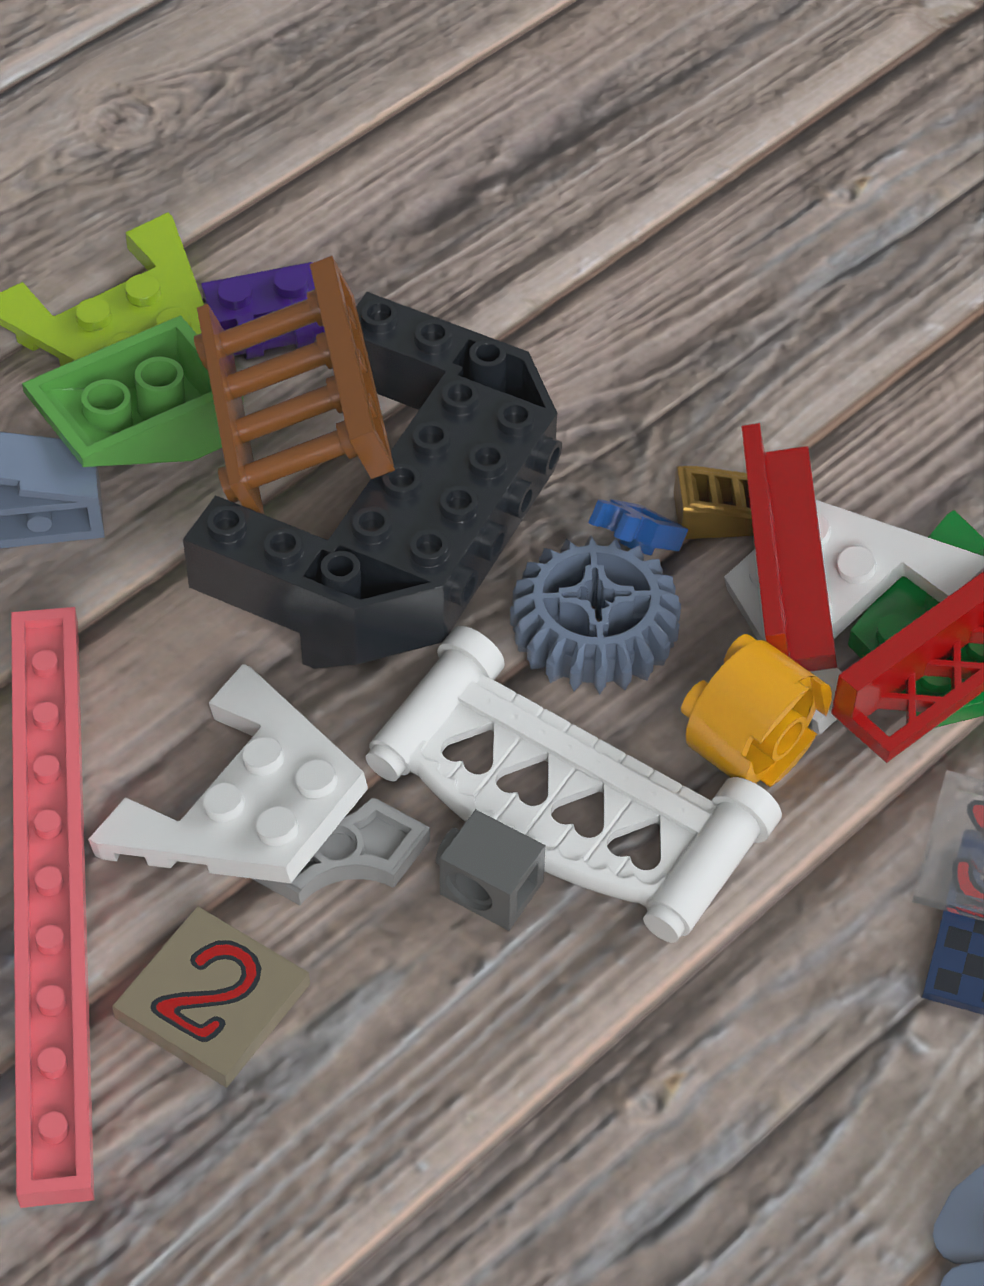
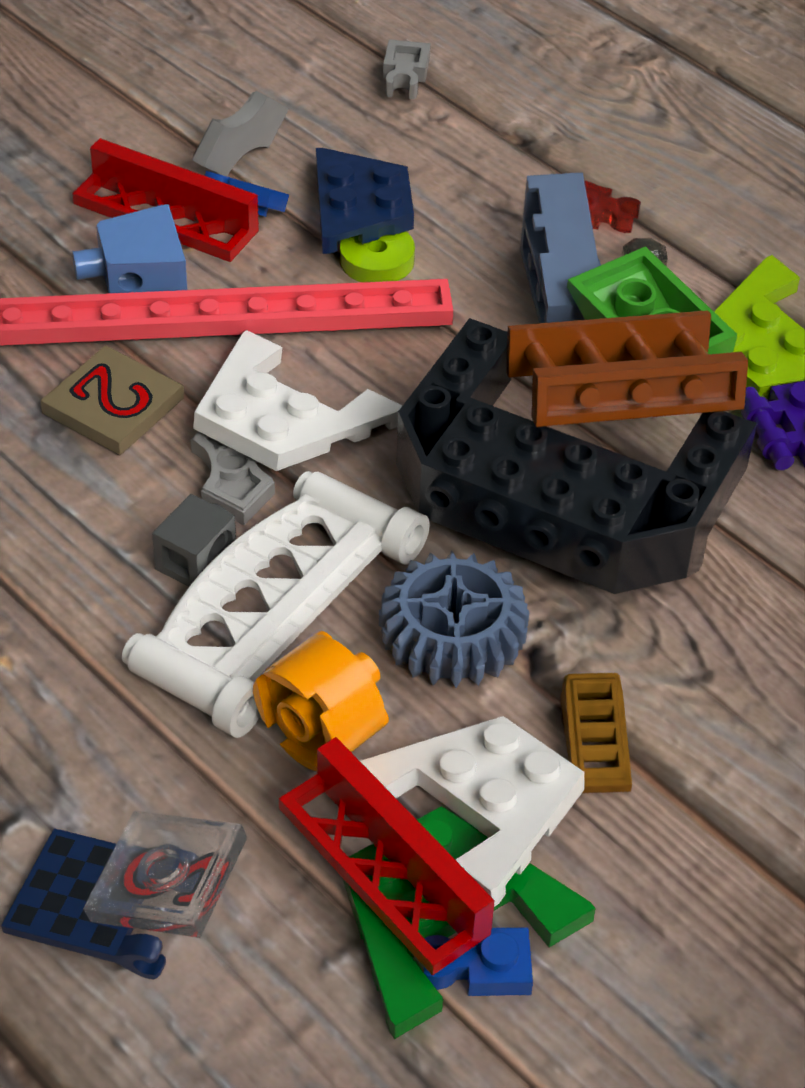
camera: 90 degrees right, 5 degrees down
(638, 526) = (550, 644): blue plate -> none
(789, 552) = (498, 733): red fence -> none

